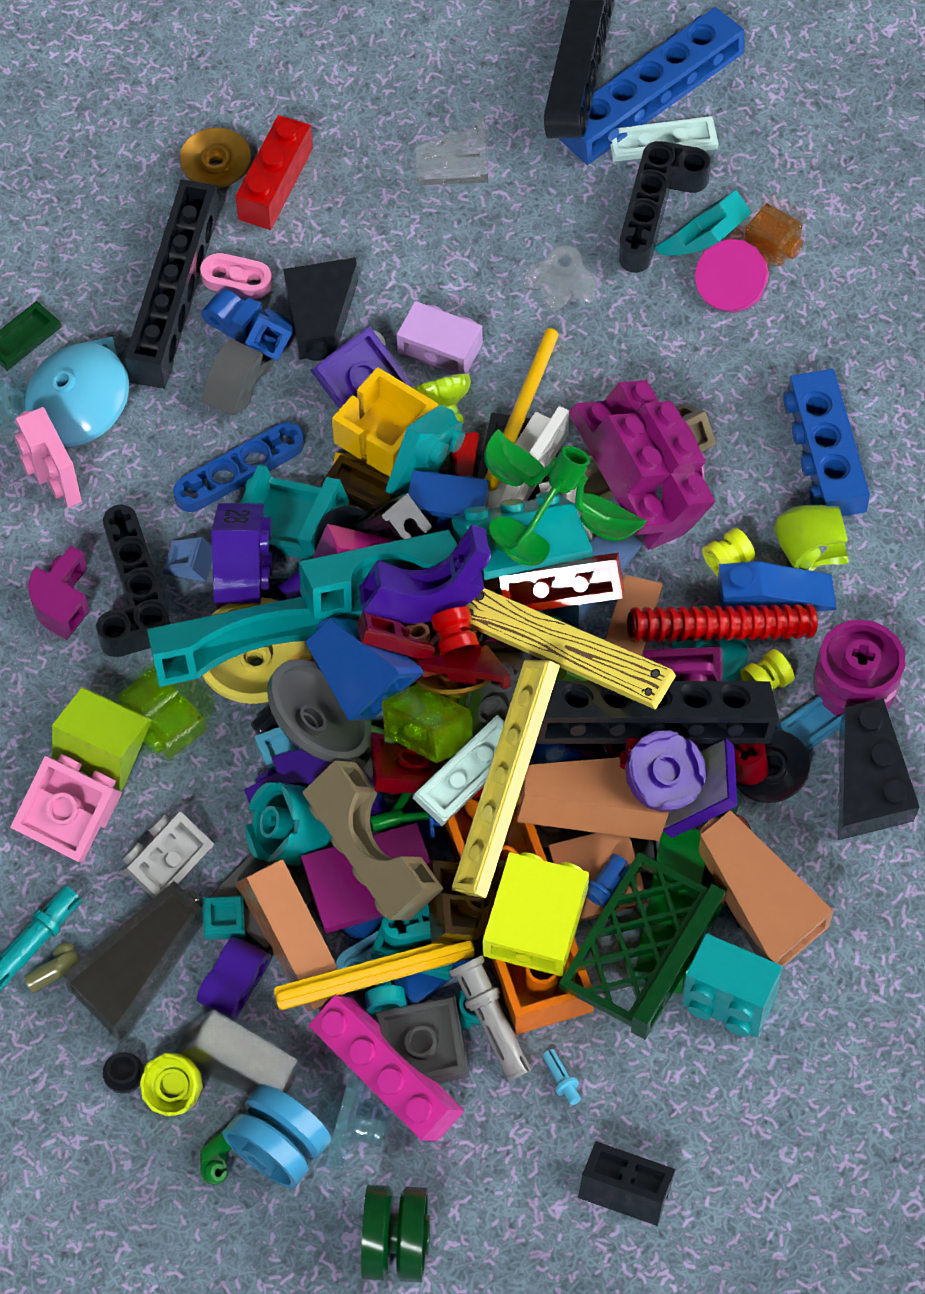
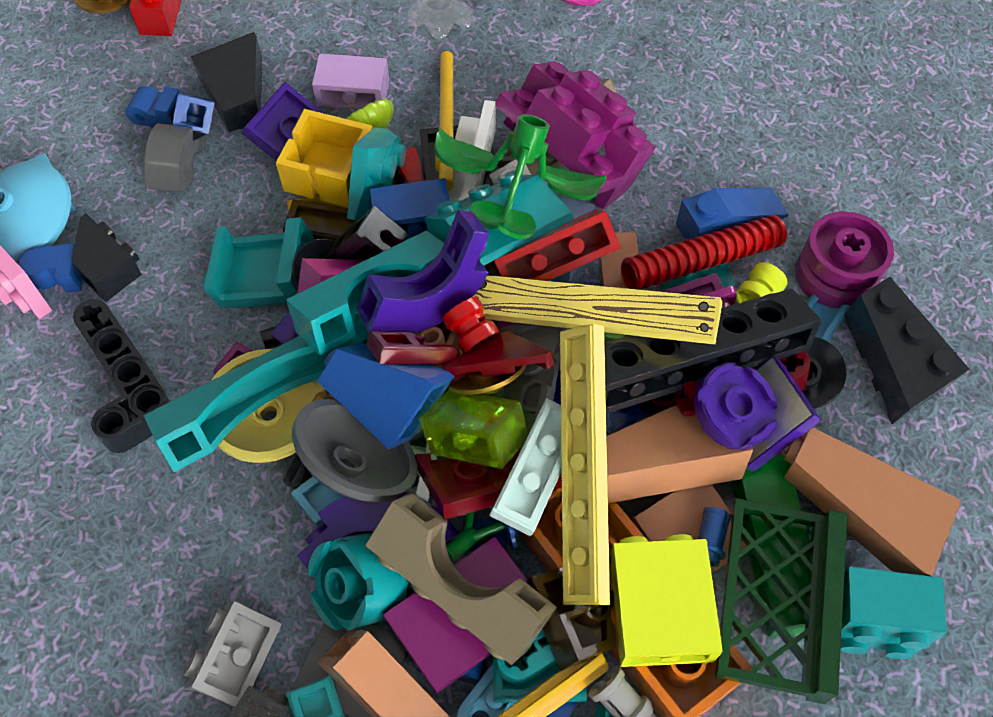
camera: 20 degrees left, 0 degrees up
(53, 596) = (41, 406): magenta brick -> none
(66, 807) = (106, 633): bright pink plate -> none
(96, 459) = (52, 266): none -> blue leg
(100, 735) = (123, 544): lime slope -> none
(141, 467) = (101, 260): none -> black slope
(172, 284) = (90, 97): black brick -> none
(173, 717) = (186, 499): clear neon green brick -> none
(189, 559) = (174, 334): medium blue slope -> none
(235, 463) = (194, 234): blue beam -> none
(238, 274) = (149, 73): bright pink plate -> none
(241, 553) = (220, 313): dark purple brick -> none
(732, 549) = (680, 185): neon yellow wheel -> none
(807, 528) = (744, 154): lime piece -> none
(821, 394) = (721, 82): blue brick -> none

